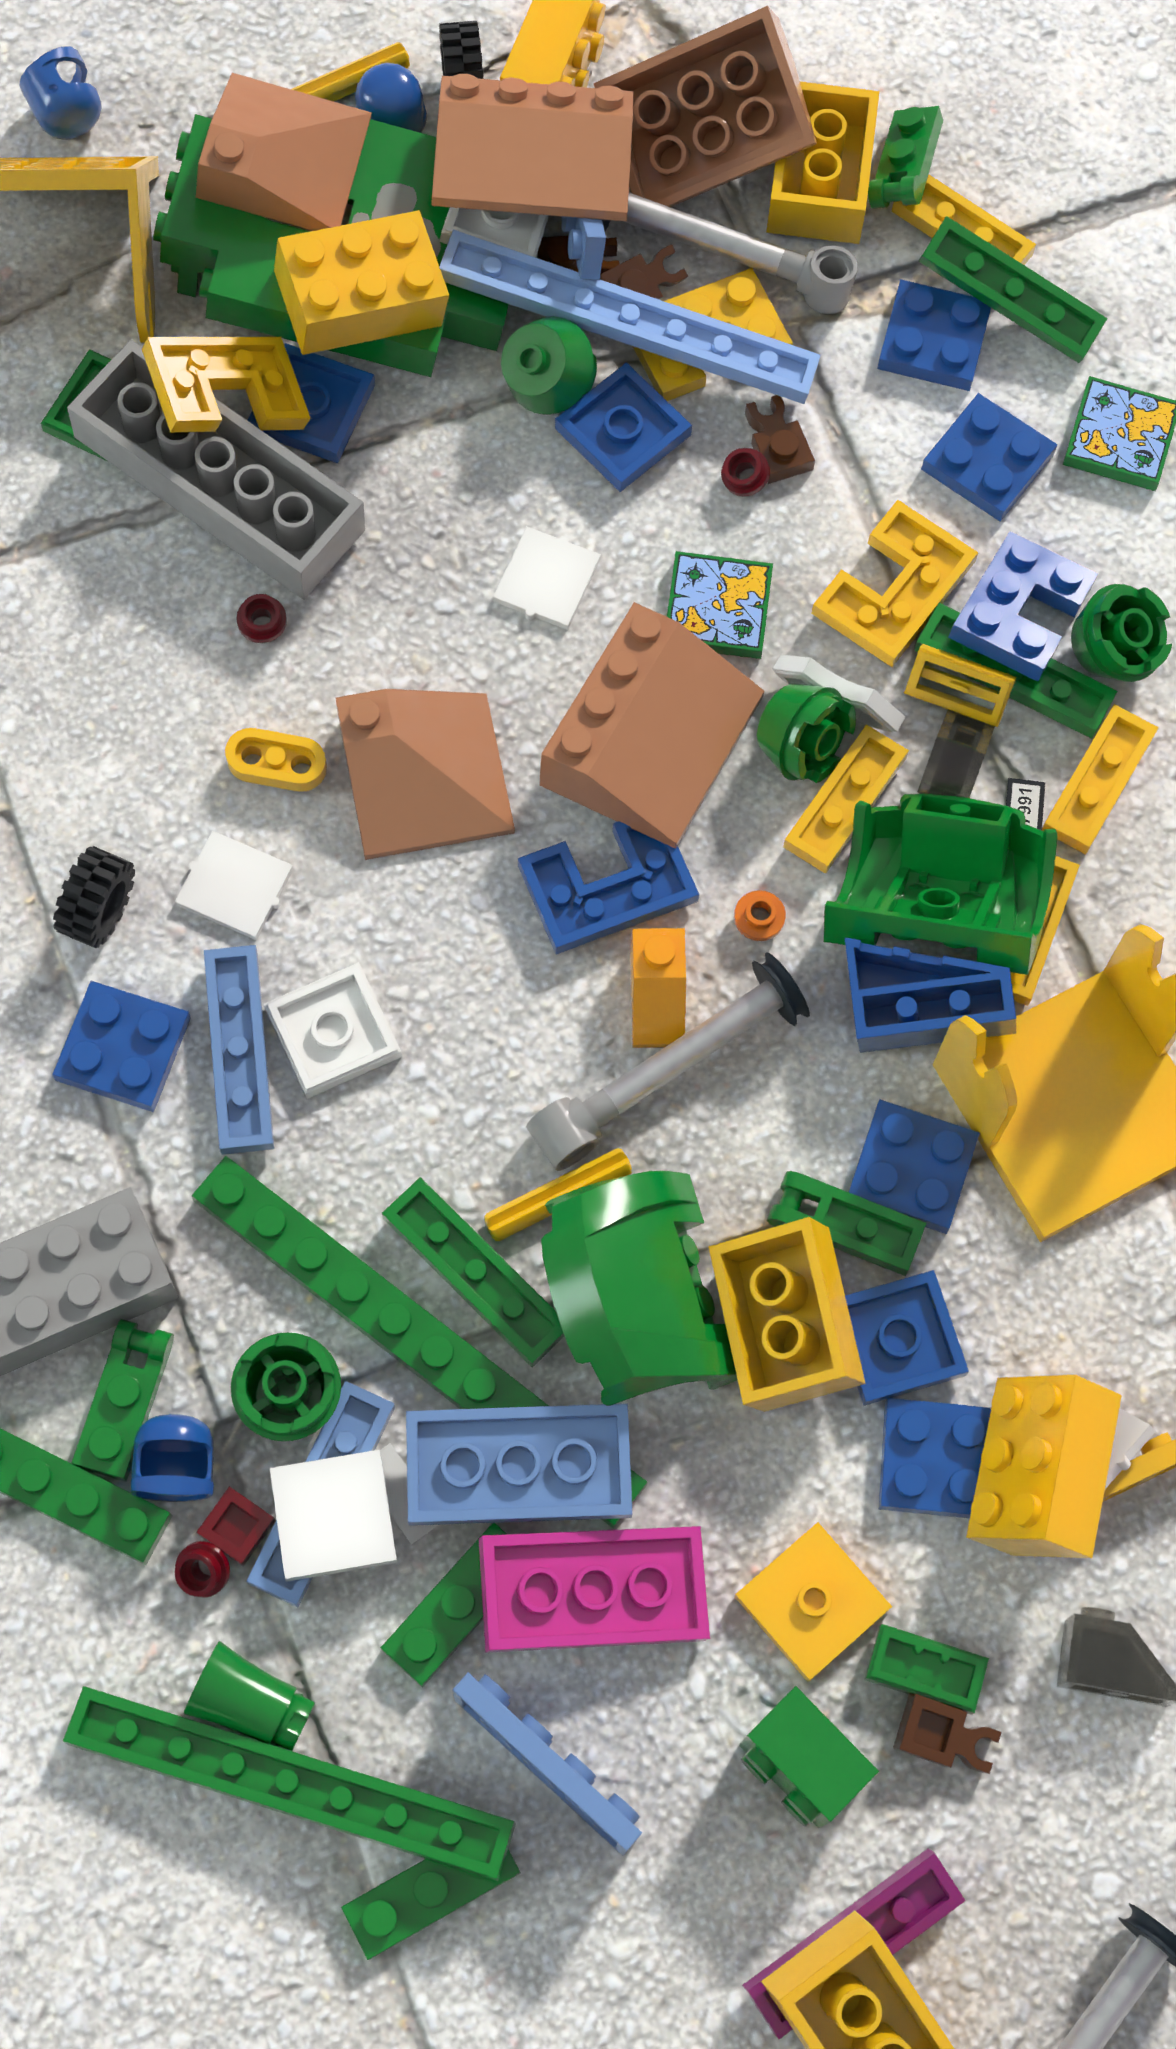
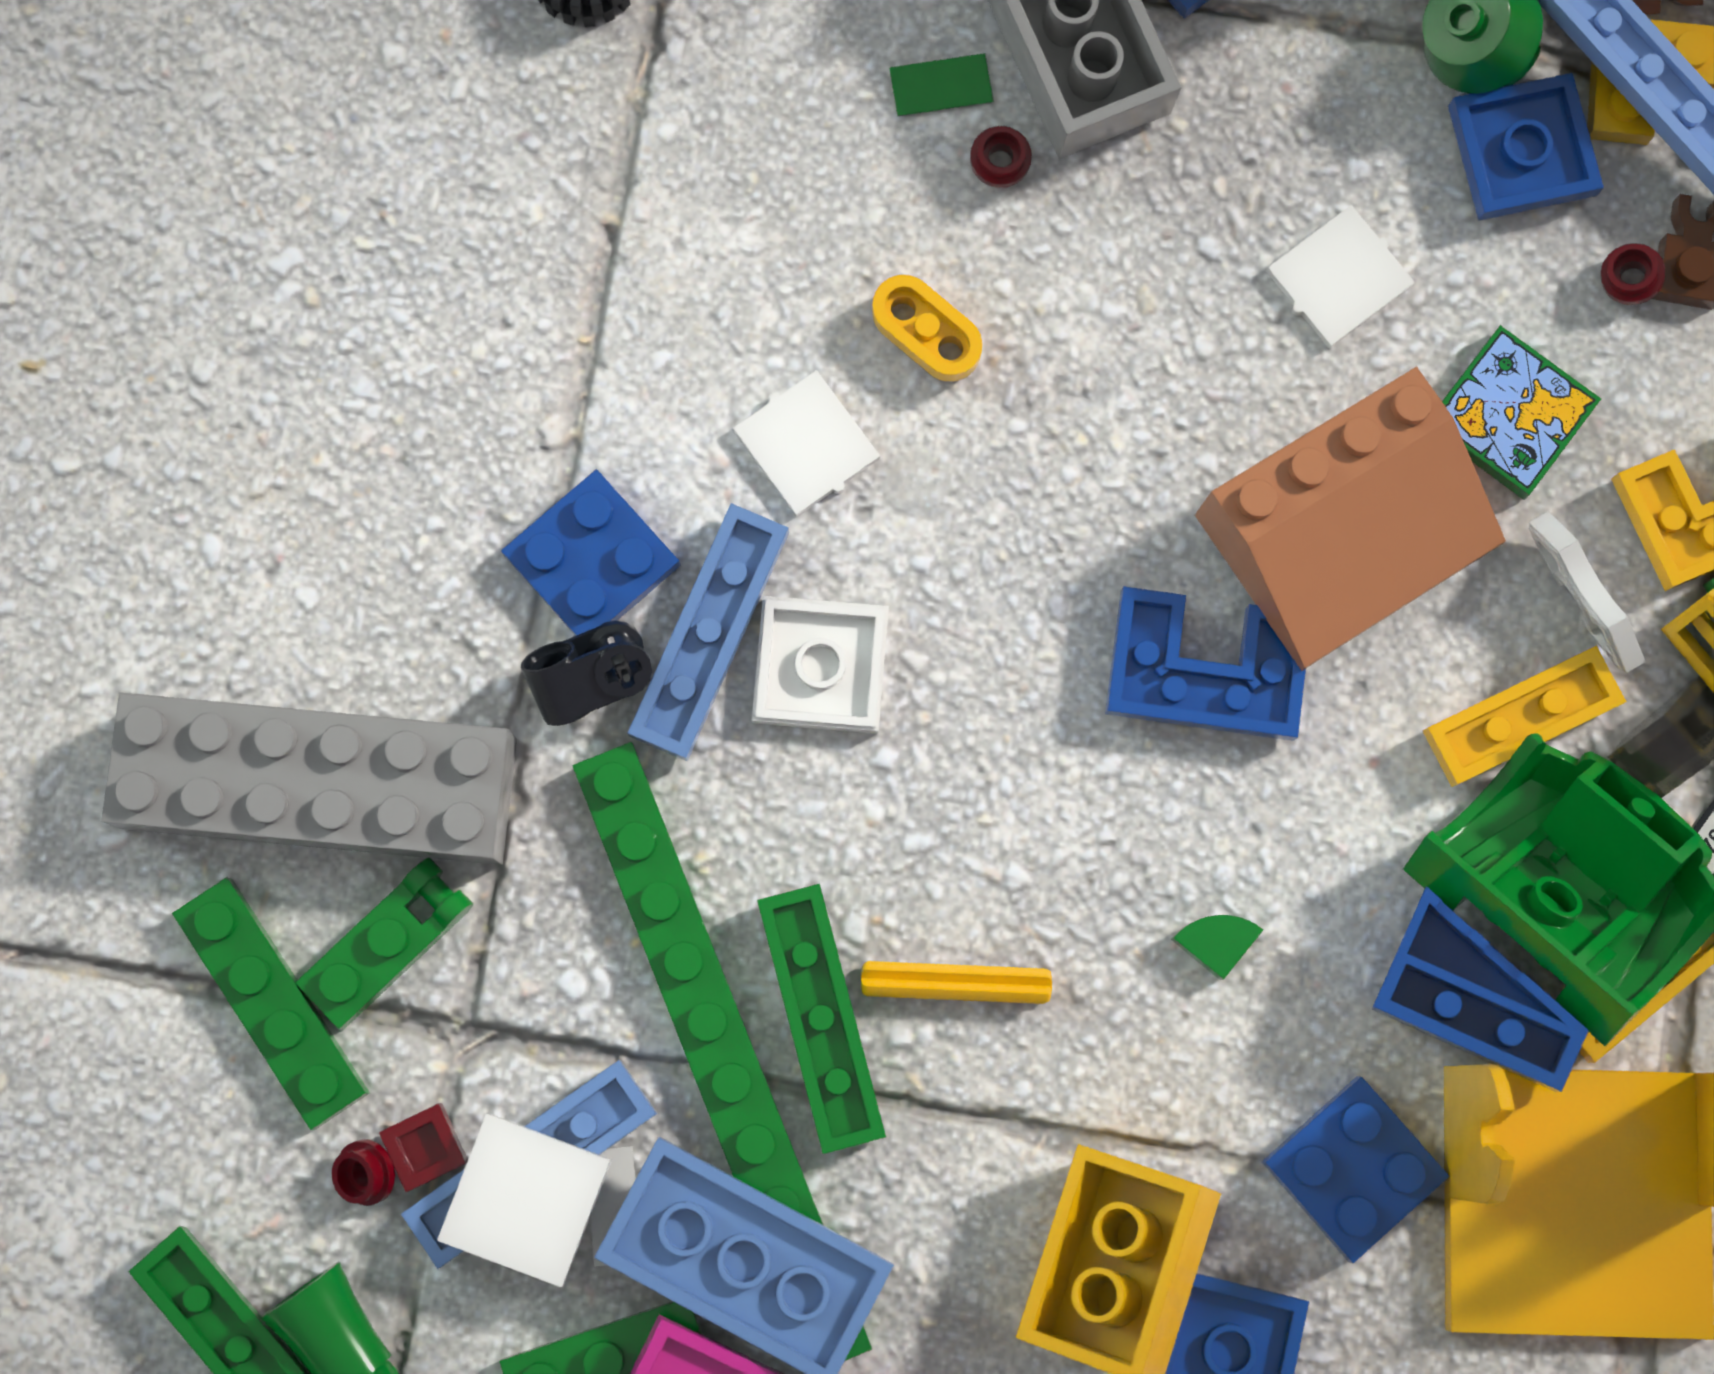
camera: 30 degrees right, 10 degrees up
(94, 896) = (646, 381): black tyre -> none
(160, 1128) = (580, 675): none -> black piece
(173, 1459) = (395, 1045): blue helmet -> none
(190, 594) = (941, 84): none -> green sticker
(285, 1386) = (550, 1036): green cone -> none
(423, 769) = (1079, 426): nougat slope -> none
(570, 1128) = (1012, 920): piece -> none
(632, 1285) = (972, 1141): green piece -> none
(658, 986) = (1192, 817): light orange slope -> none
(726, 1066) = (1218, 941): none -> green tile
(759, 929) = (1337, 809): orange plate -> none
(804, 730) = (1521, 616): green cone -> none
(854, 1222) = (1251, 1194): green plate -> none

